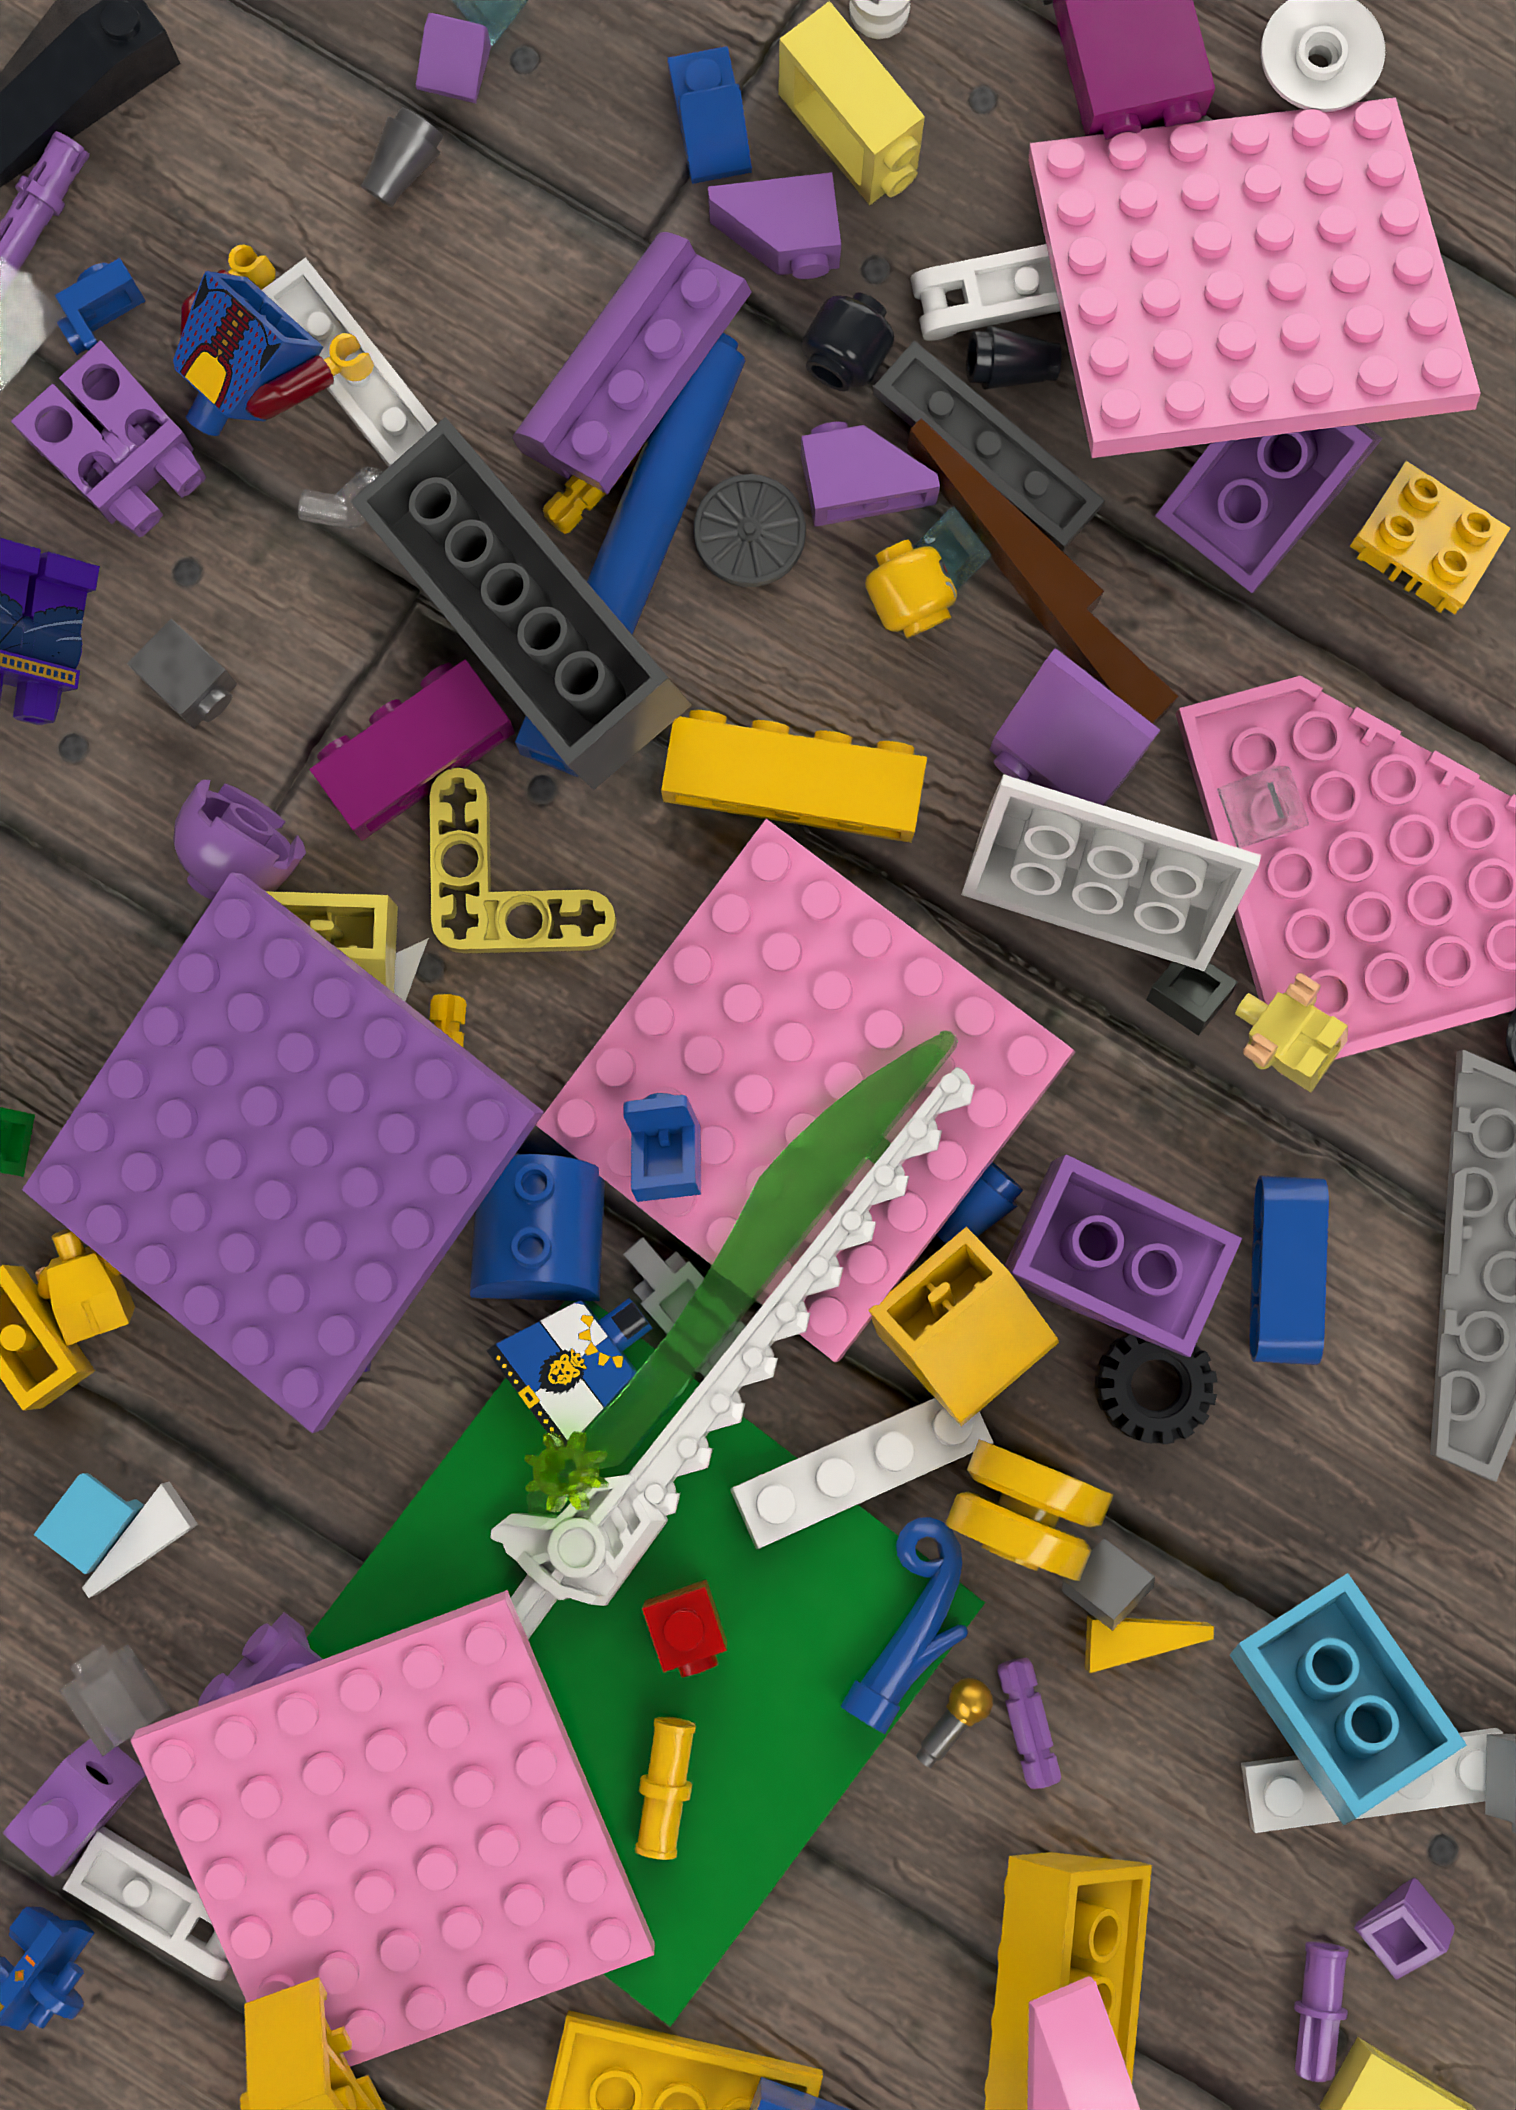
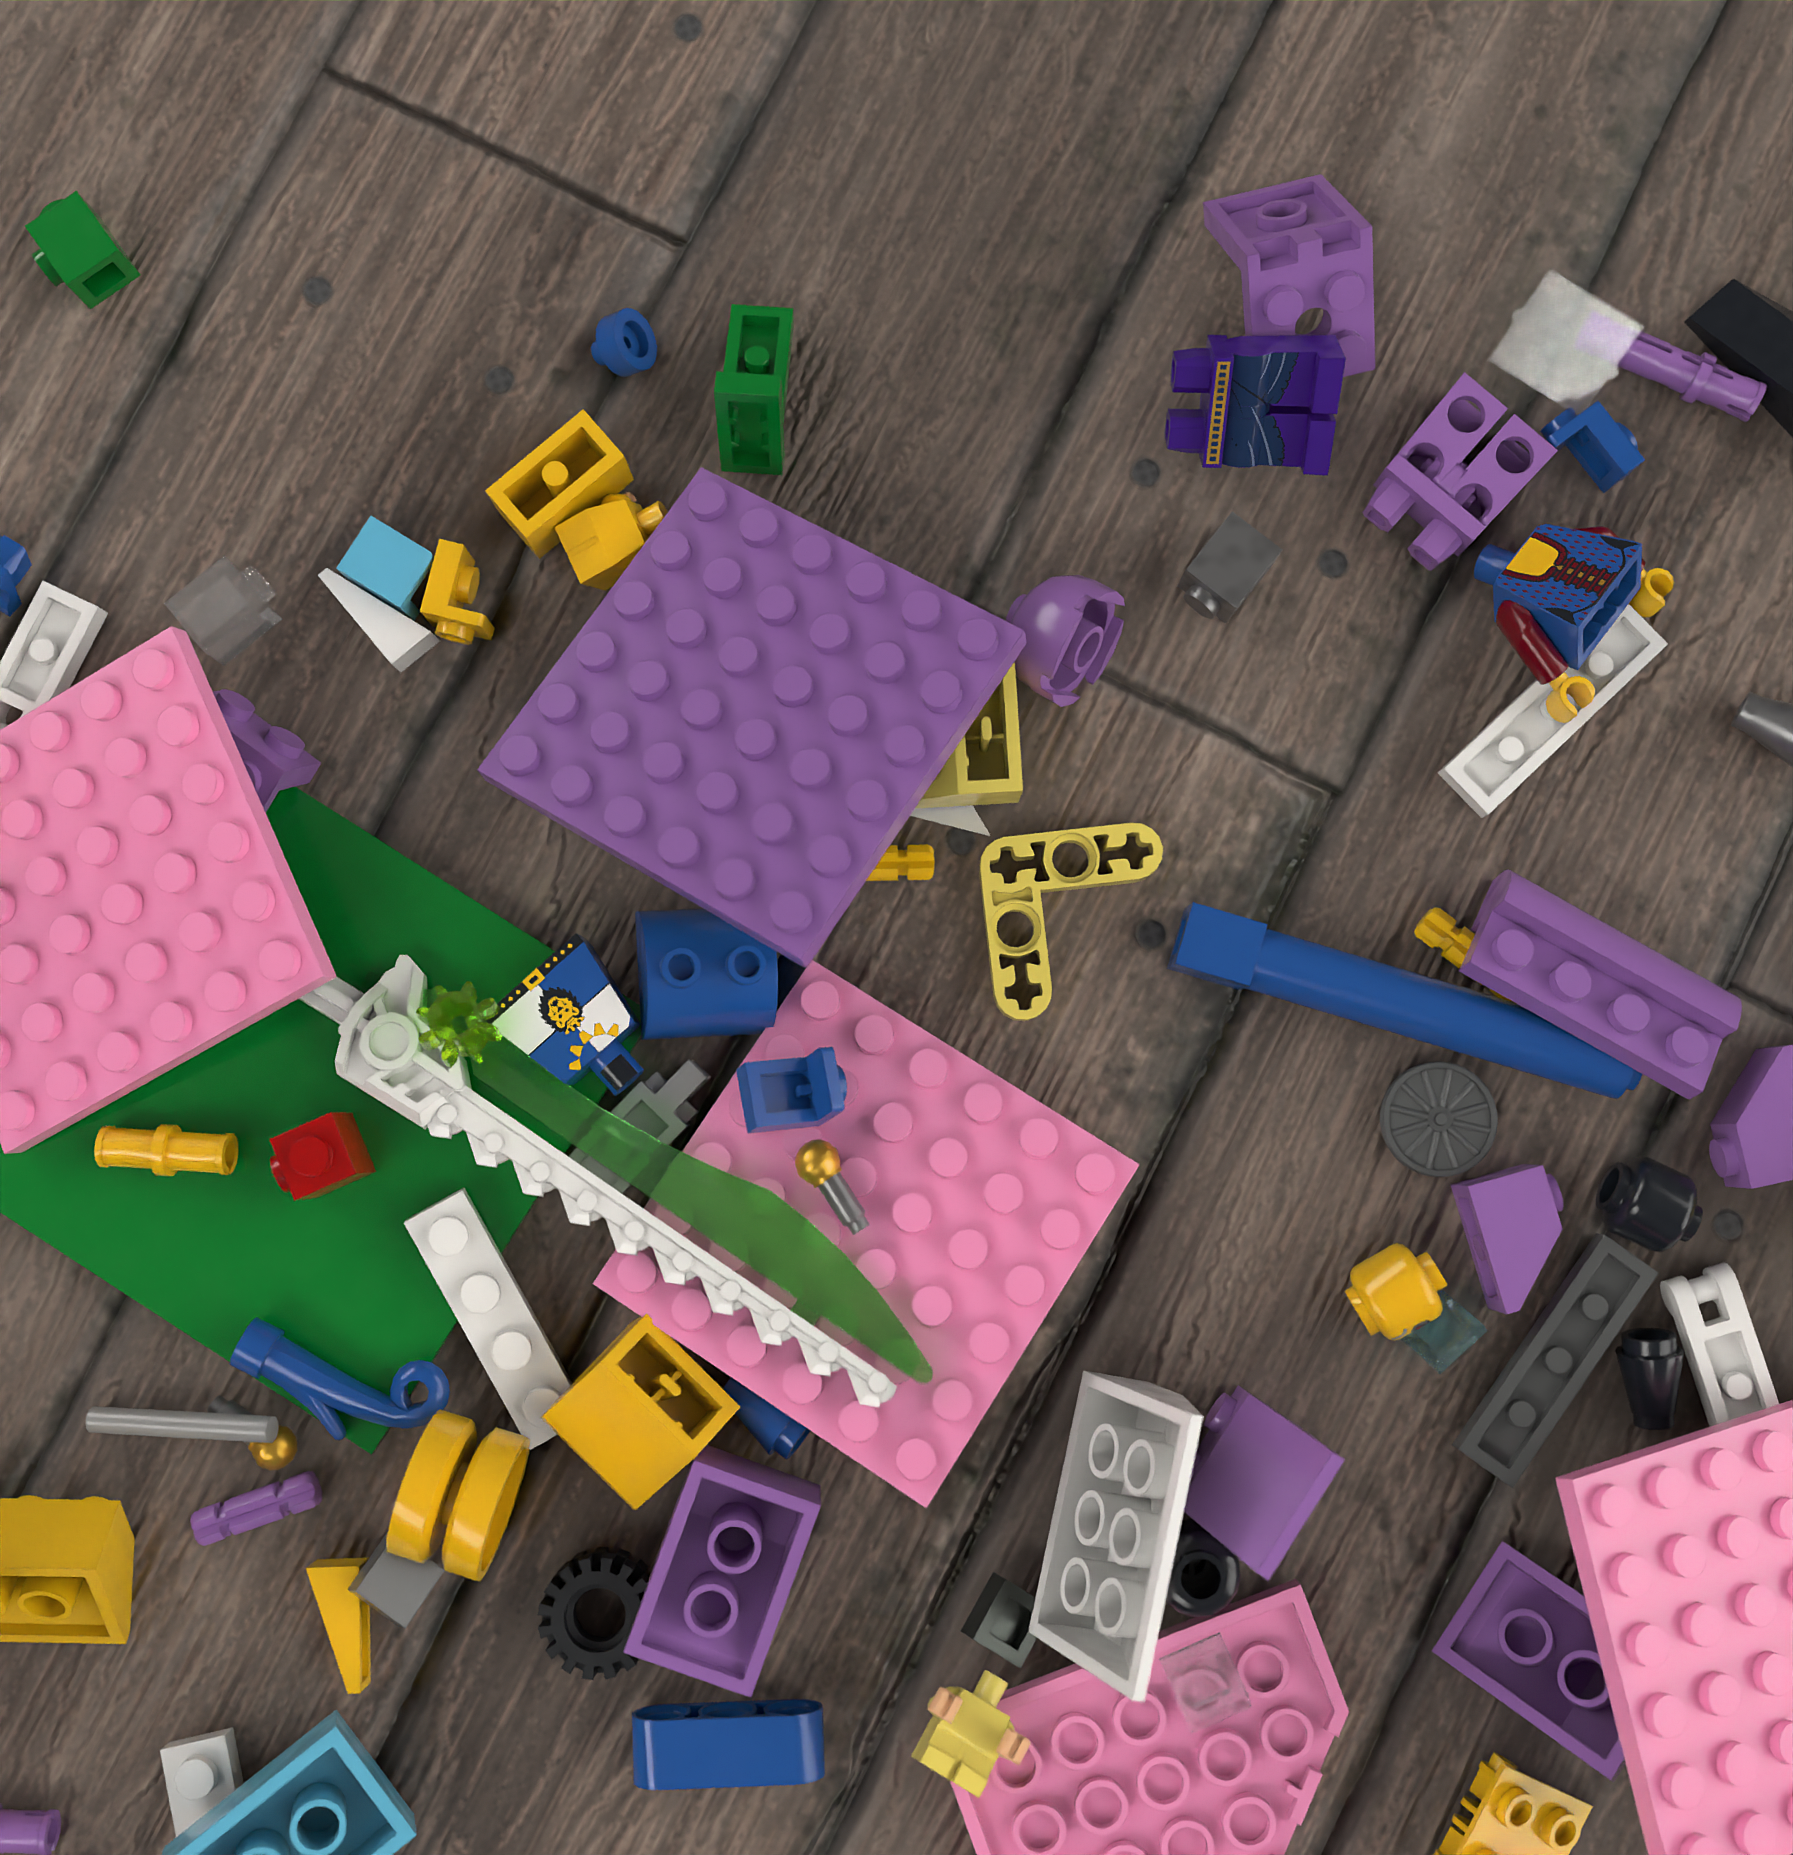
camera: 85 degrees right, 0 degrees up
(73, 1806) = (112, 578): medium lavender torso -> none
(114, 1457) = (449, 586): none -> yellow bracket
(336, 508) = (1418, 715): clear arm -> none
(409, 746) = (1178, 798): magenta brick -> none
(520, 604) = (1331, 894): dark grey brick -> none
(739, 1126) = (820, 1166): none -> piece
(794, 776) = (1187, 1190): yellow brick -> none
(940, 1791) = (182, 1424): none -> light grey bar
(1043, 576) = (1424, 1428): reddish brown slope -> none
(1165, 787) = (1211, 1583): none -> black head

